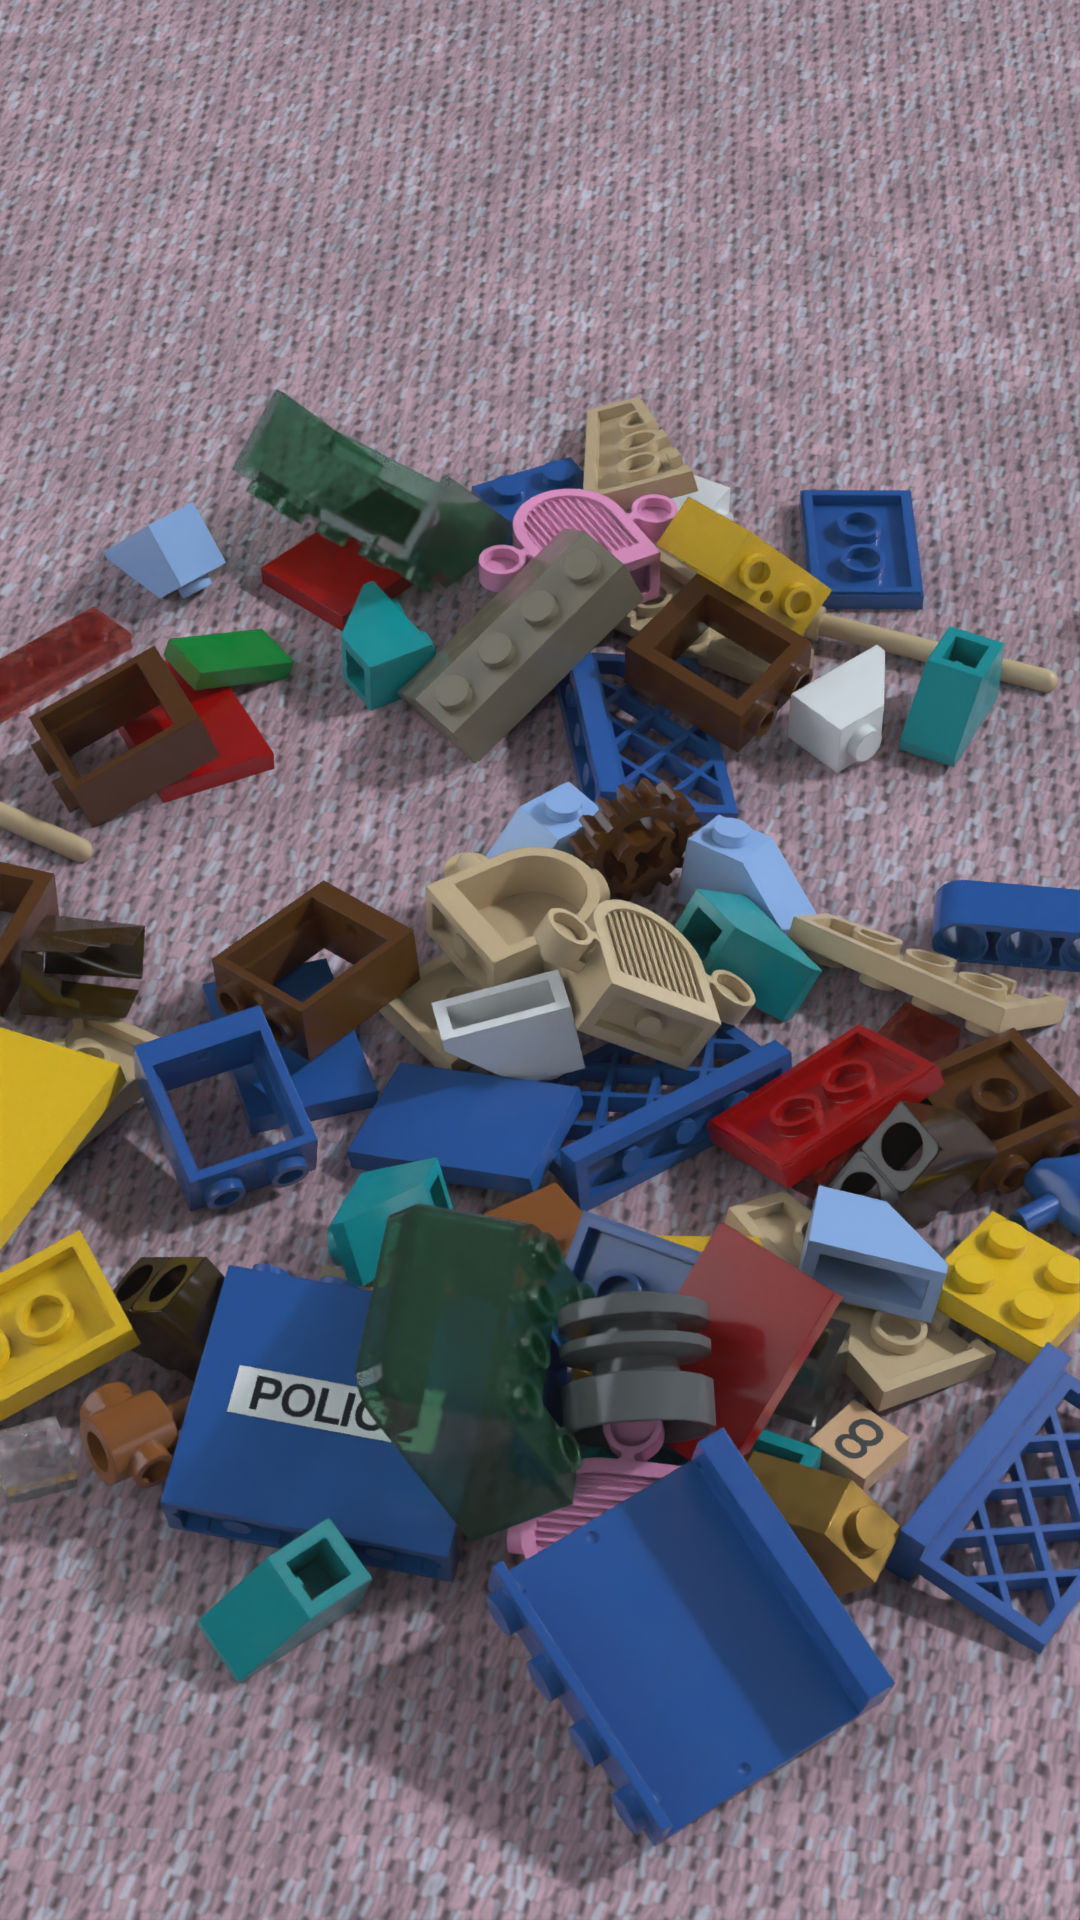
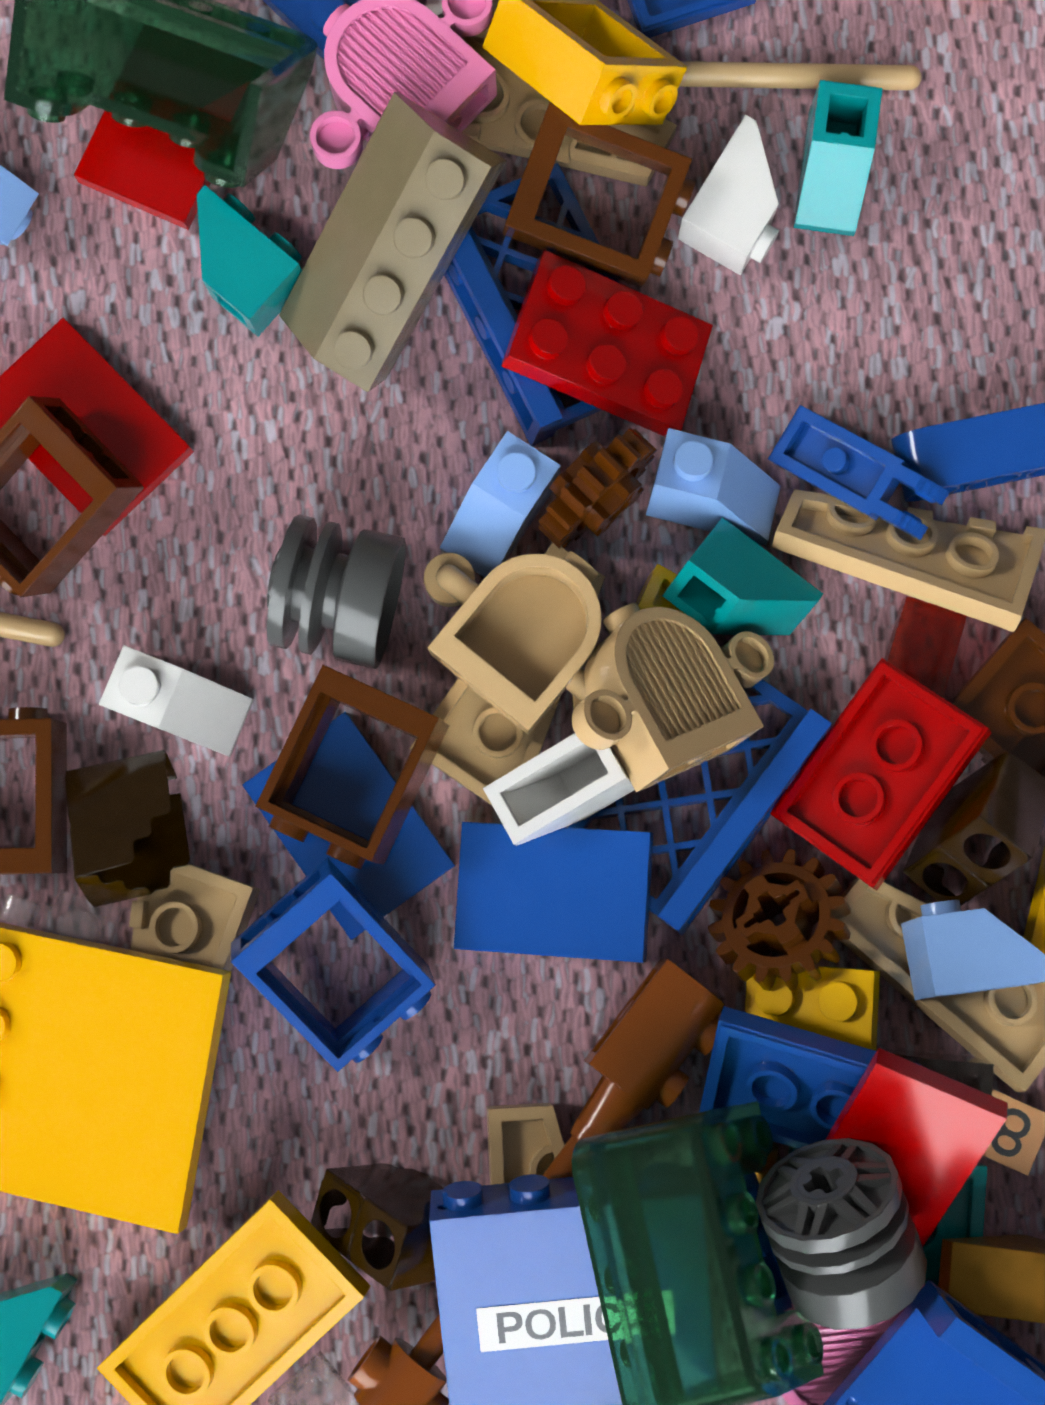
camera: 15 degrees left, 40 degrees up
(172, 901) = (176, 701): none -> white slope
(228, 659) = (95, 333): green tile -> none
(360, 1223) = (534, 1052): teal slope -> none
(362, 846) = (323, 589): none -> dark grey wheel
(668, 741) = (607, 345): none -> red plate
(683, 1193) = (803, 902): none -> reddish brown gear
(888, 899) = (851, 469): none -> blue hinge

